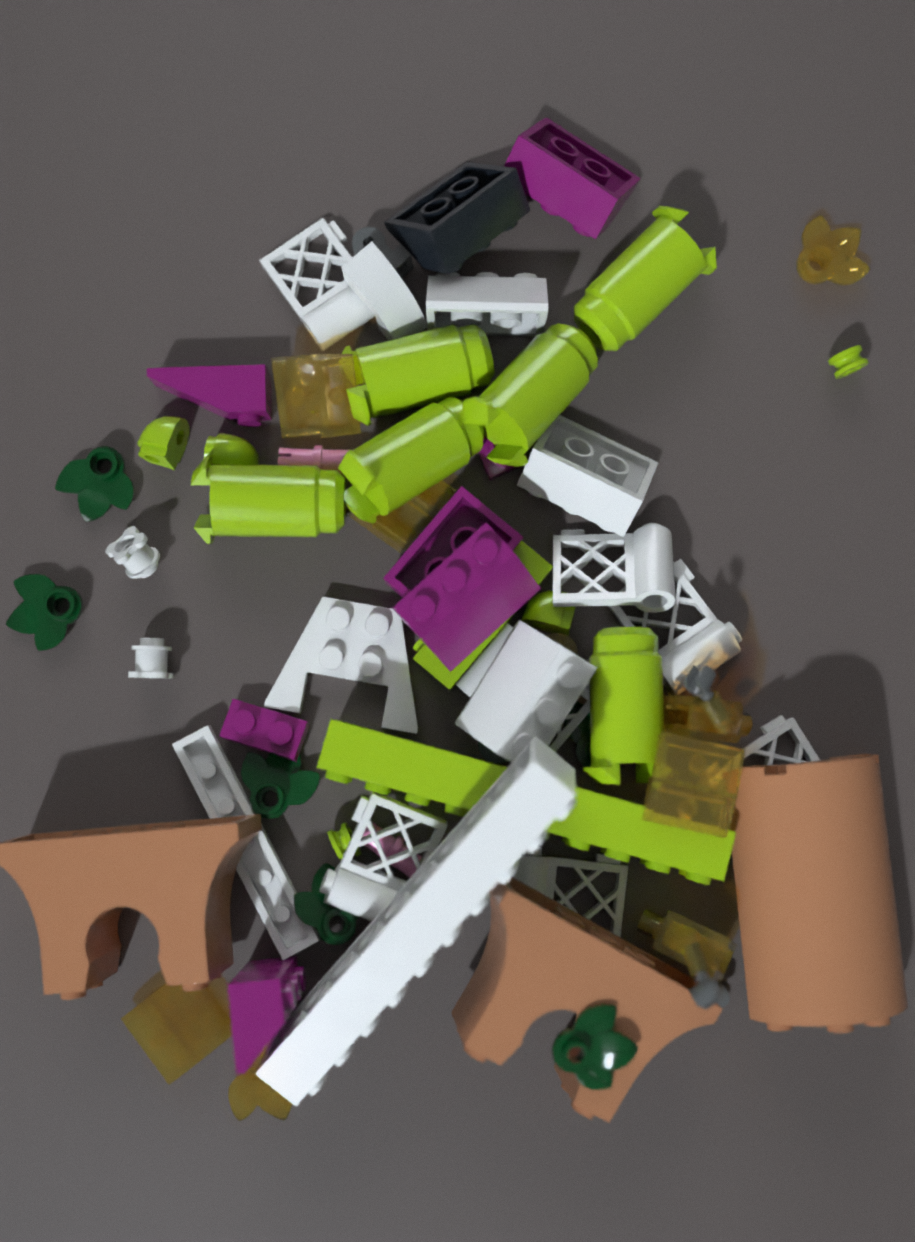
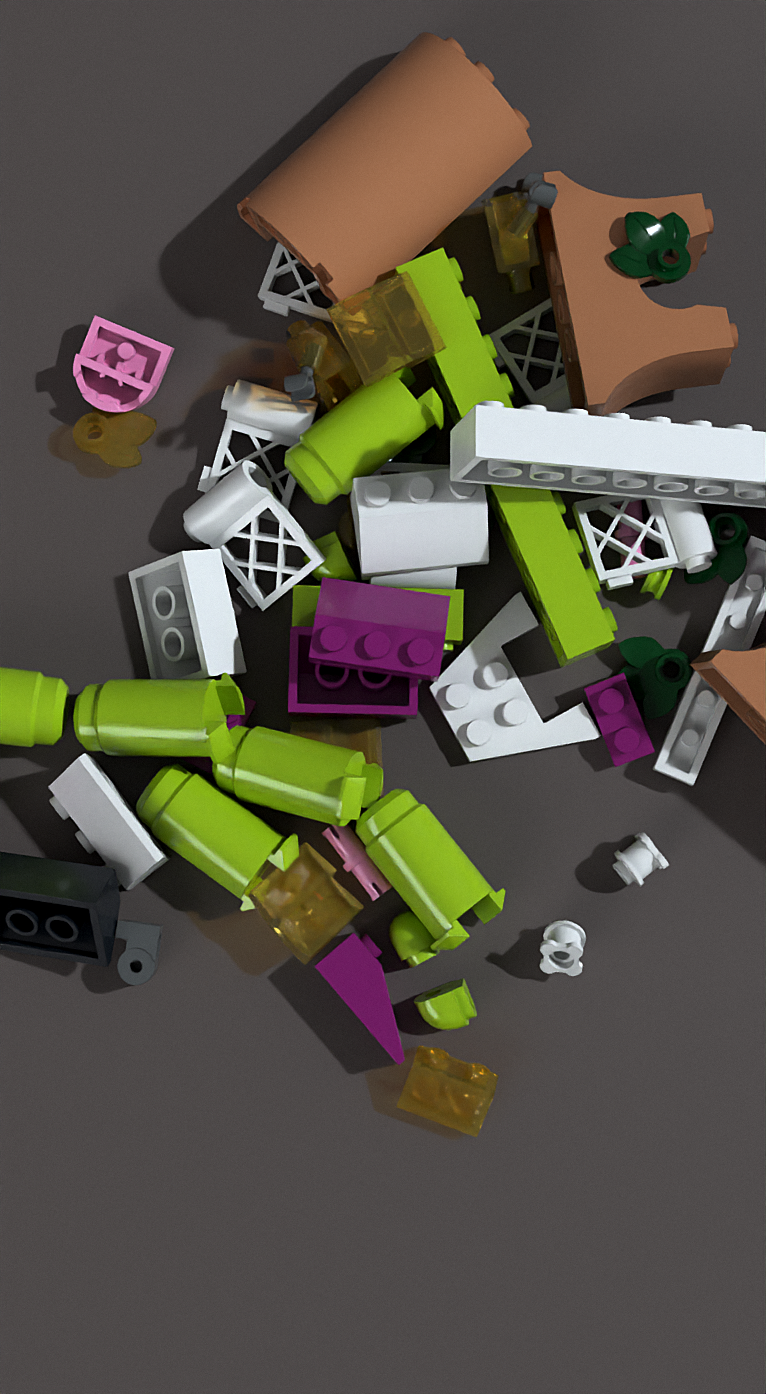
camera: 135 degrees left, 0 degrees up
(40, 610) = (675, 993): dark green plate -> none
(97, 489) = (534, 1034): dark green plate -> none
(105, 395) = (448, 1090): none -> clear yellow bracket
(332, 312) = (205, 946): white piece -> none
(384, 293) = (173, 911): white brick -> none
(768, 537) = (119, 437): none -> clear yellow plate
(818, 571) = (119, 367): none -> bright pink slope

